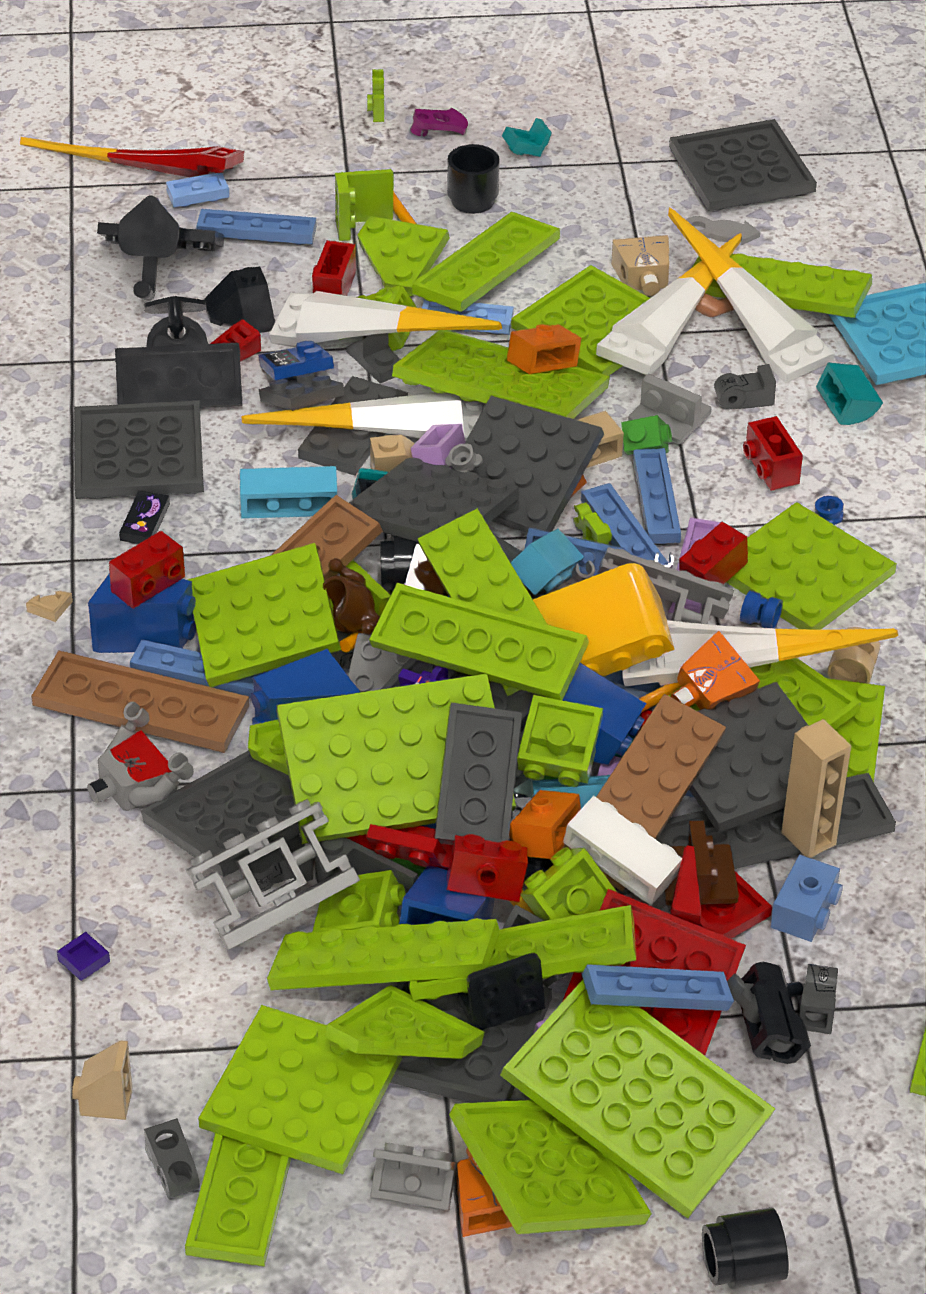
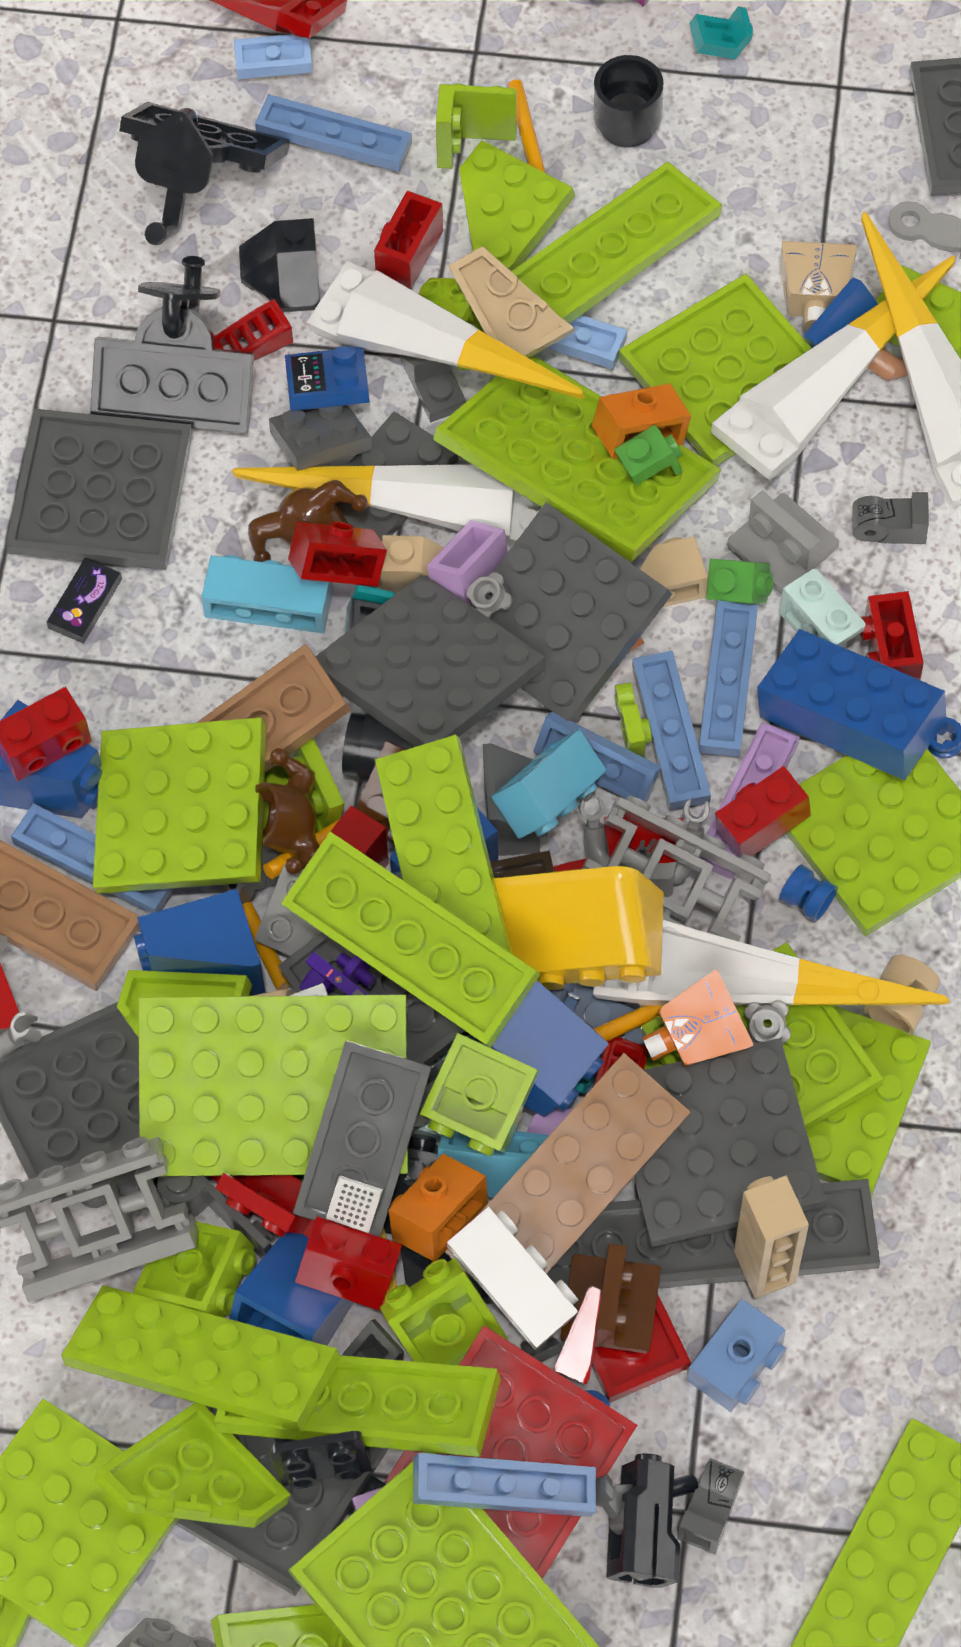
camera: 15 degrees right, 20 degrees up
(308, 438) = (302, 505): none -> reddish brown piece
(339, 449) = (337, 553): none -> red brick
(416, 288) = (506, 305): none -> tan wing
(484, 817) = (354, 1203): none -> white slope
(556, 364) = (649, 454): none -> bright green bracket
(673, 268) = (847, 306): none -> blue tile
(713, 448) = (819, 609): none -> light aqua bracket
(756, 490) = (852, 704): none -> blue brick
(767, 667) = (776, 1013): none -> light grey plate

